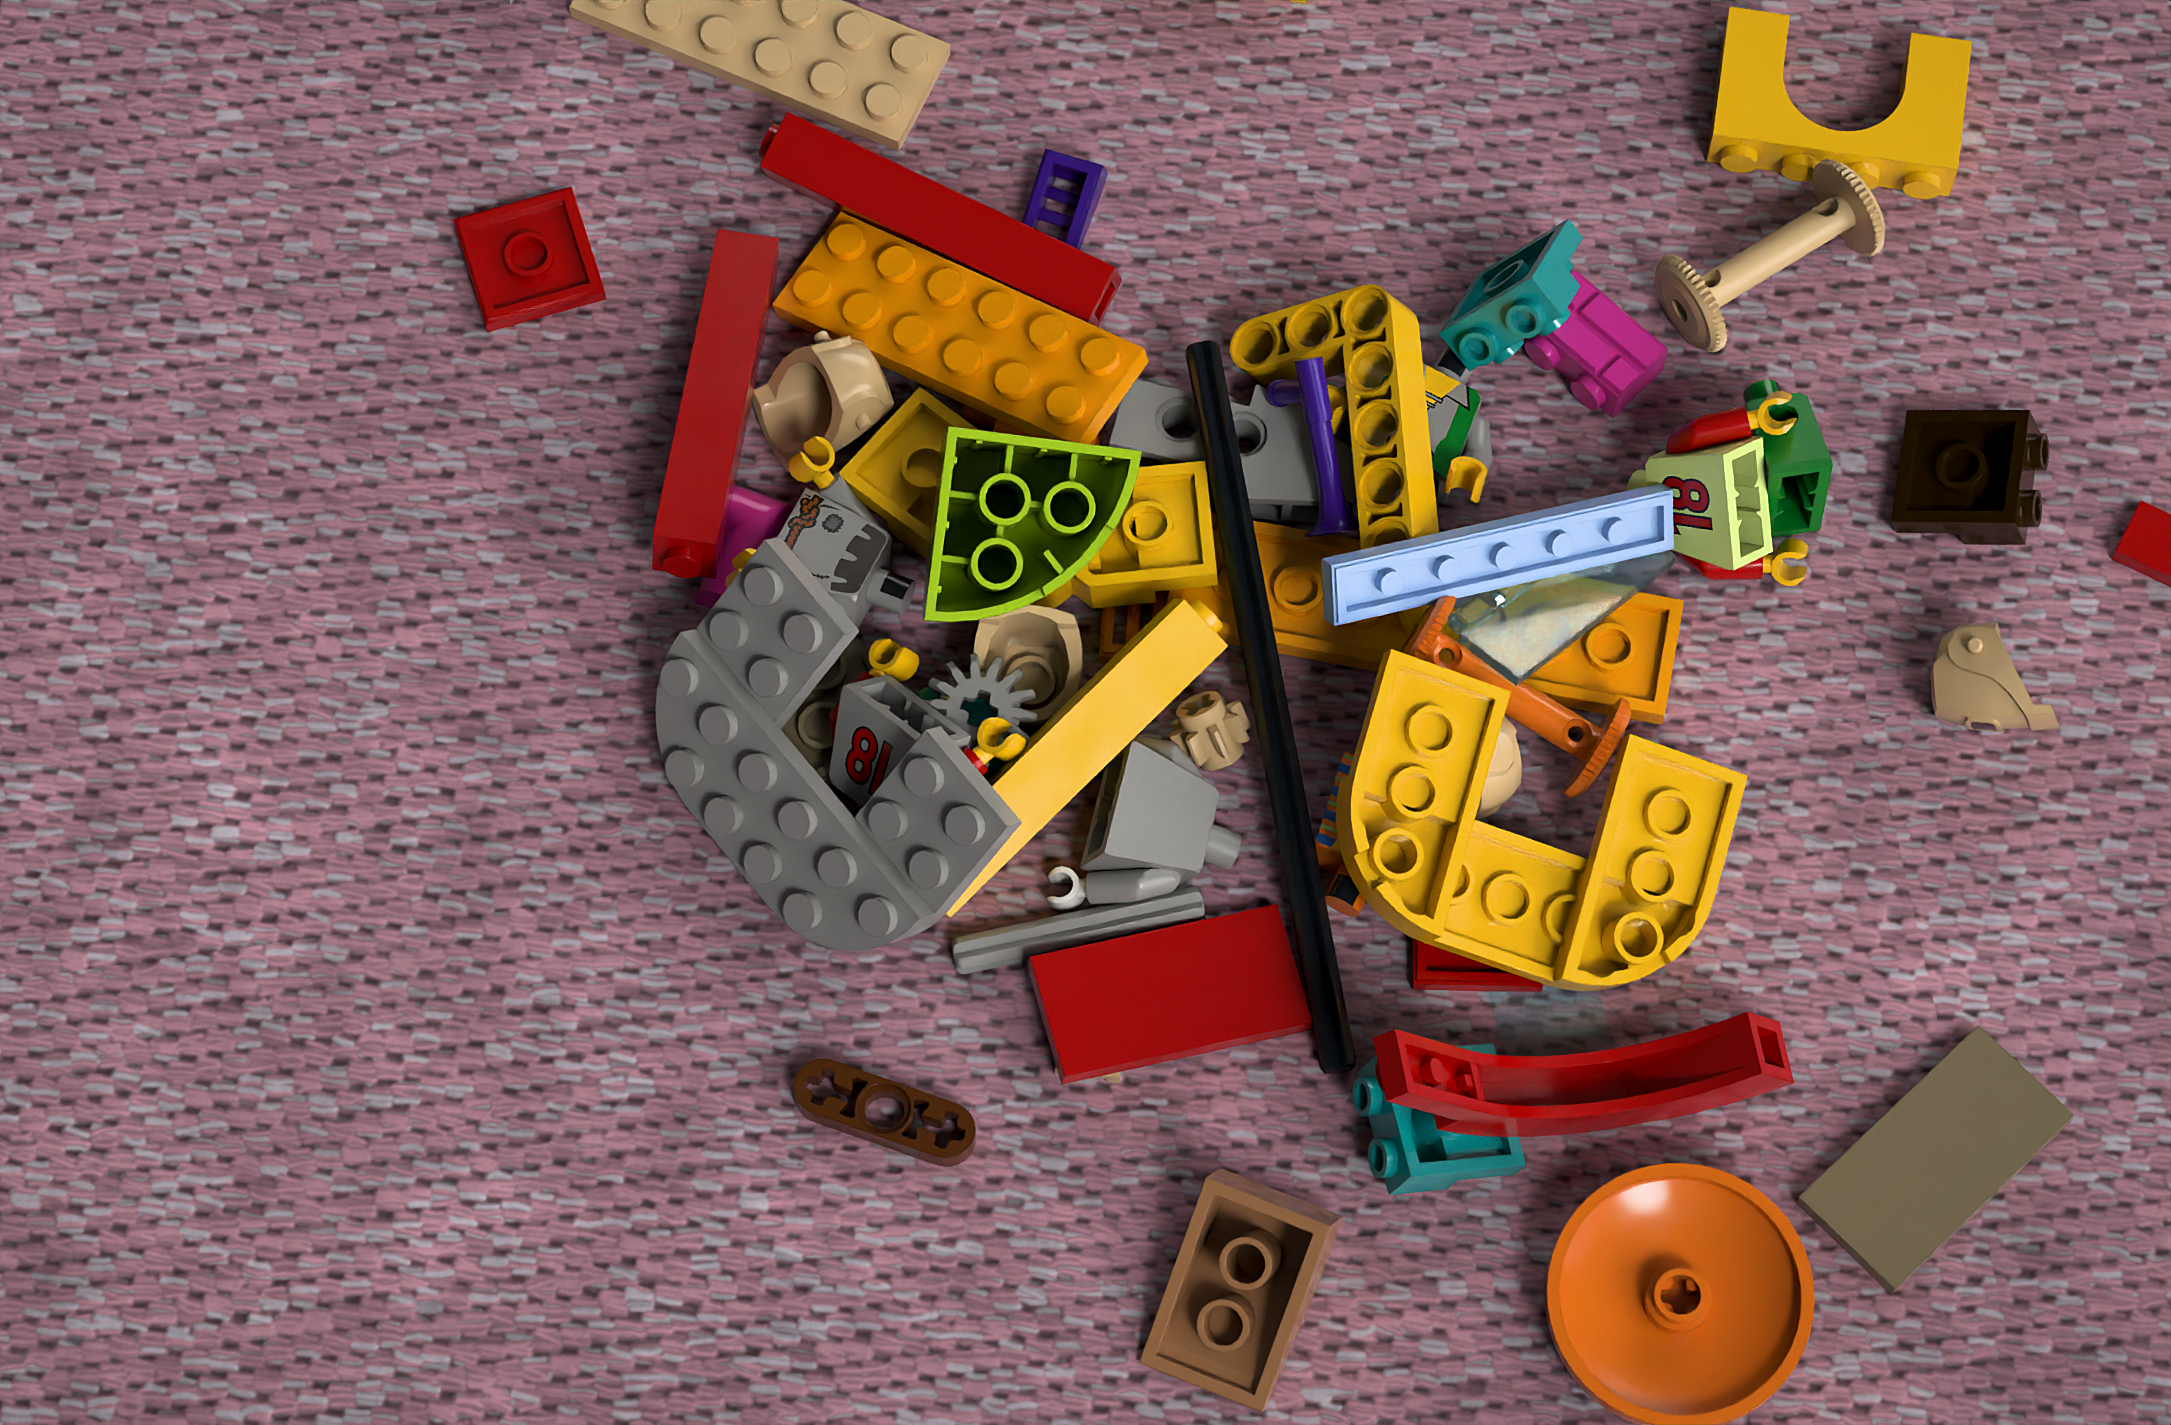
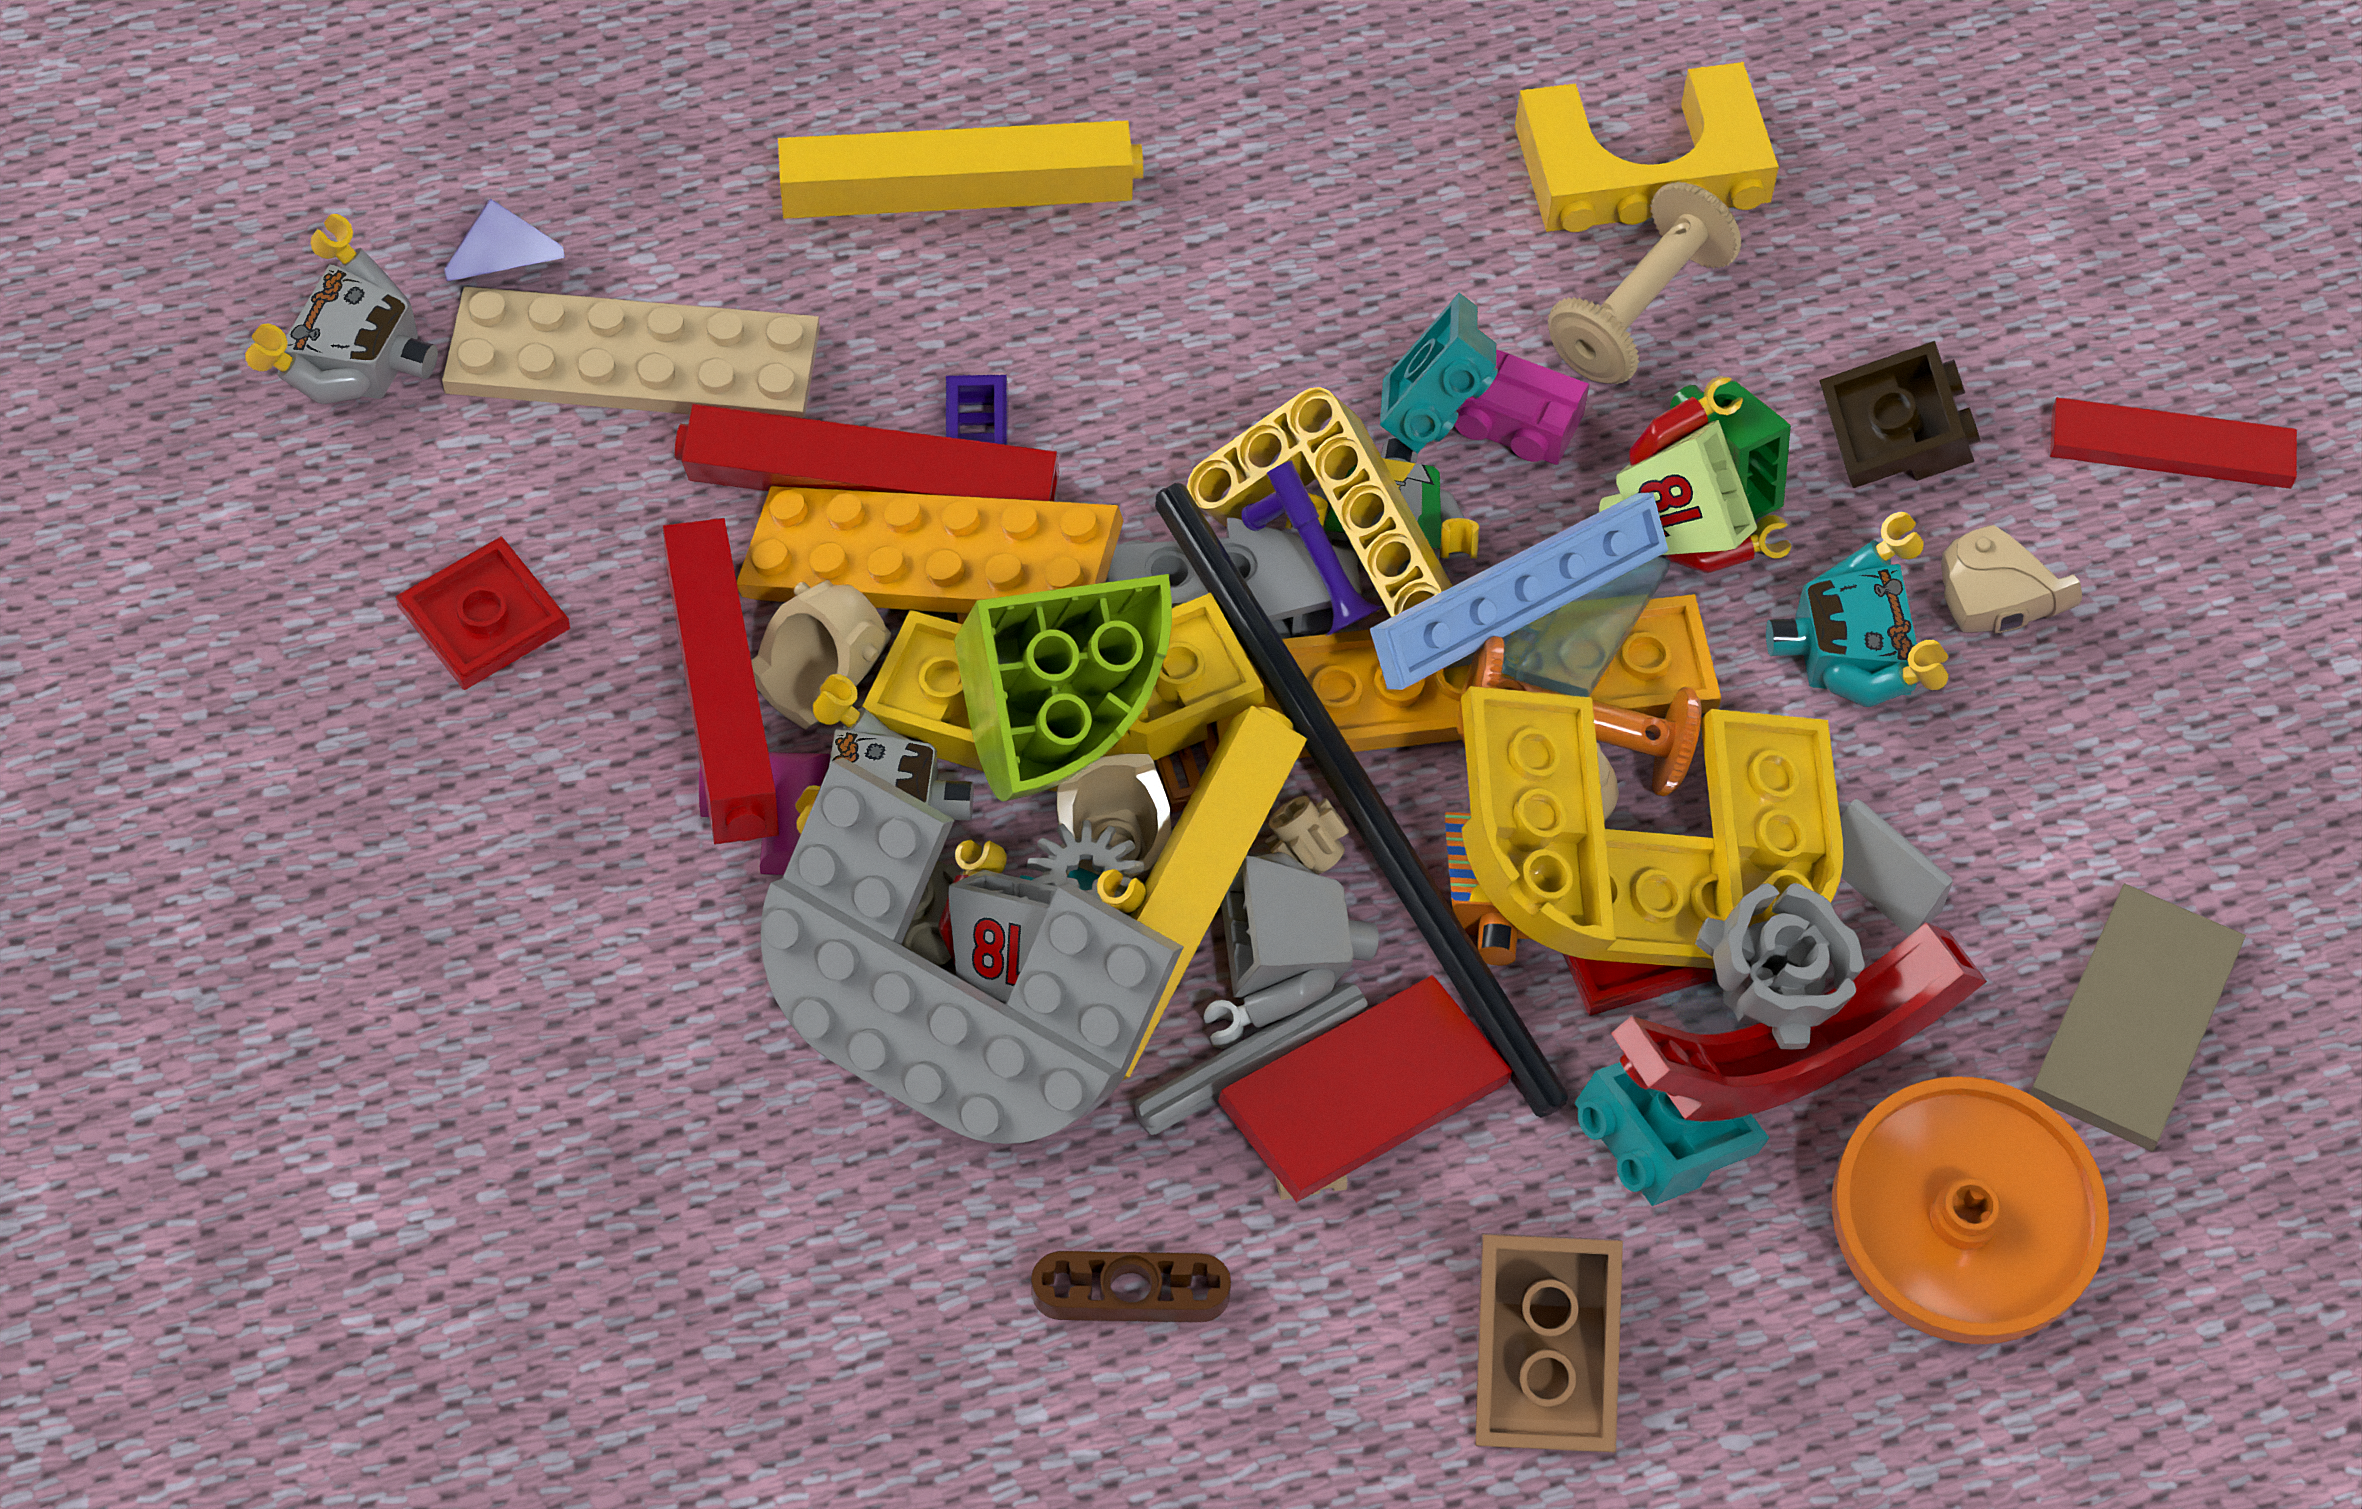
camera: 20 degrees left, 10 degrees down
(1594, 1006) = (1781, 964): none -> light grey piece
(1753, 939) = (1890, 870): none -> light grey slope
(1832, 683) = (1859, 625): none -> torso

